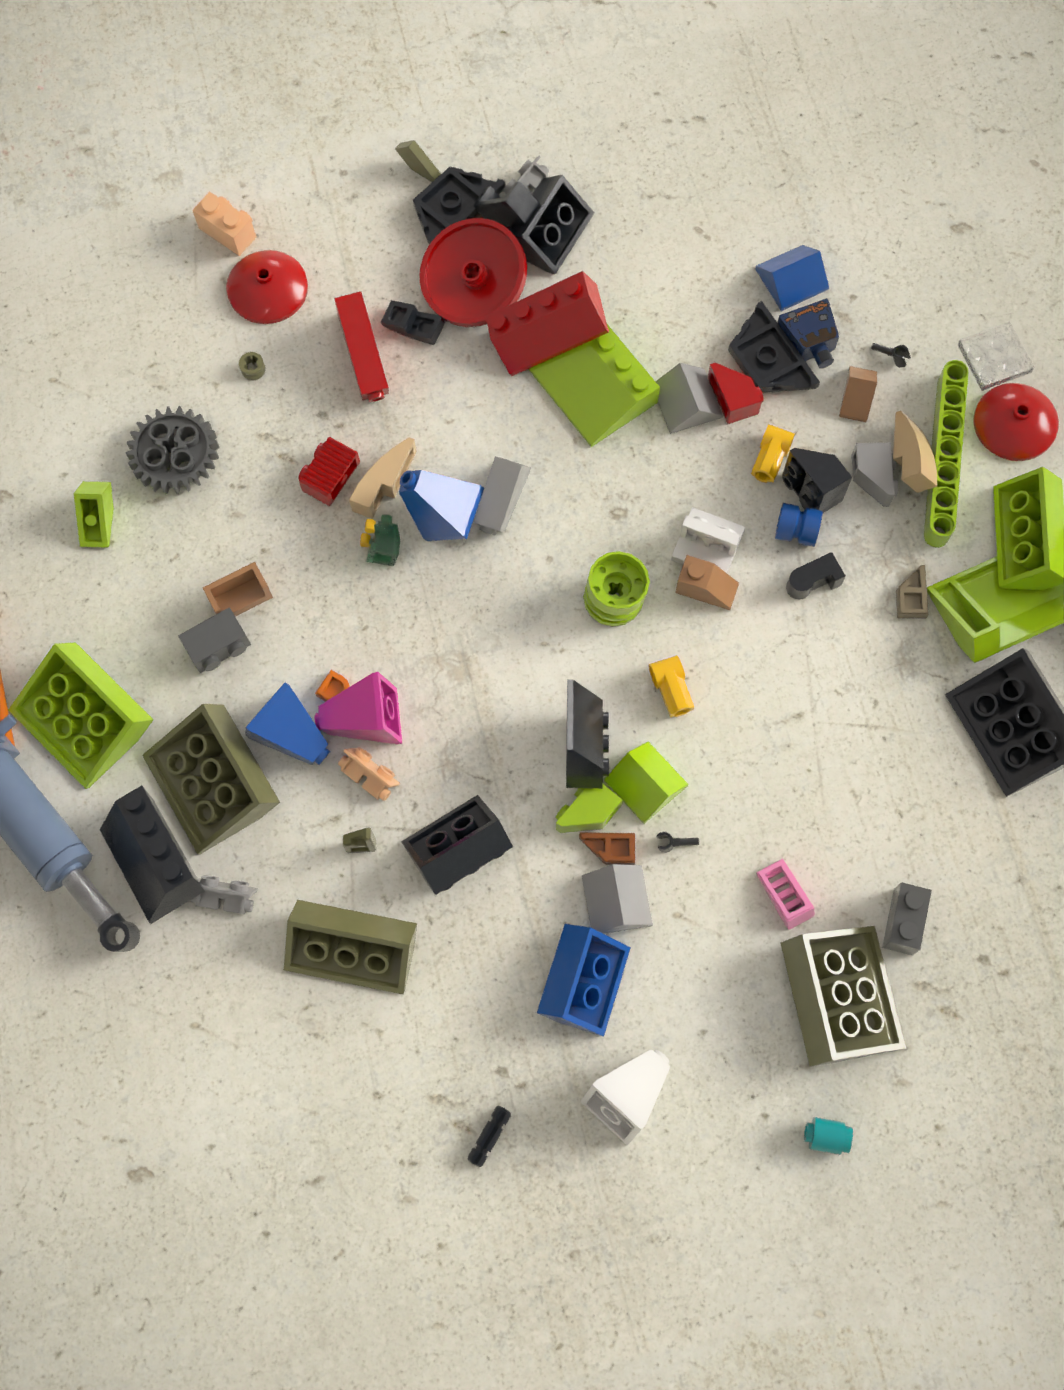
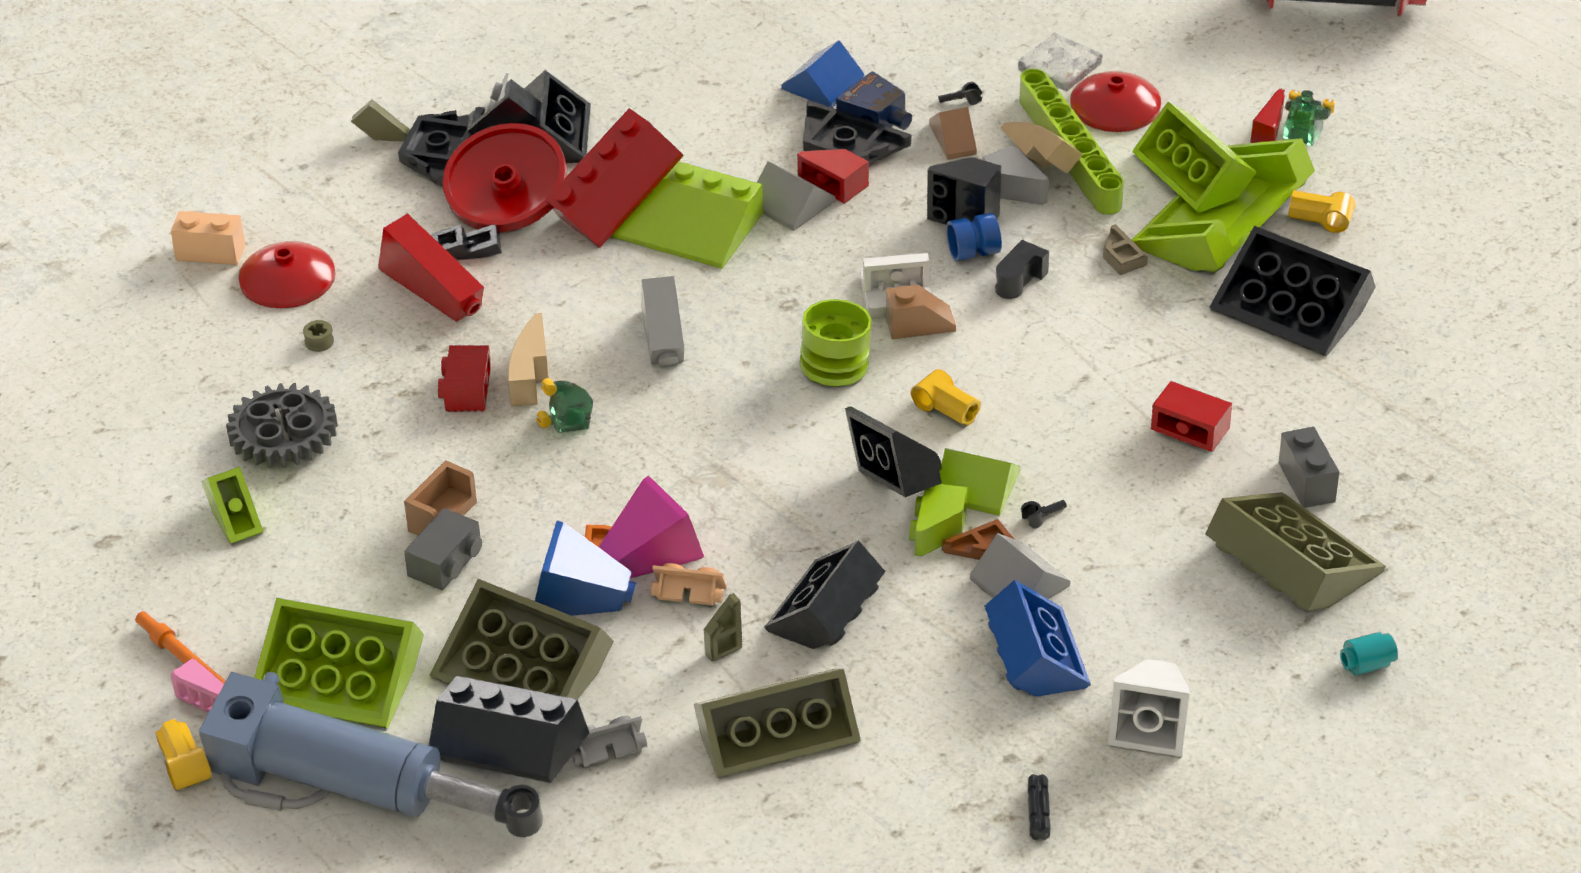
camera: 30 degrees left, 30 degrees down
(440, 504) = (609, 342): slope -> none
(773, 449) = (905, 197): yellow piece -> none
(798, 916) = (1193, 505): bright pink slope -> none
(848, 814) = (1191, 416): none -> red brick

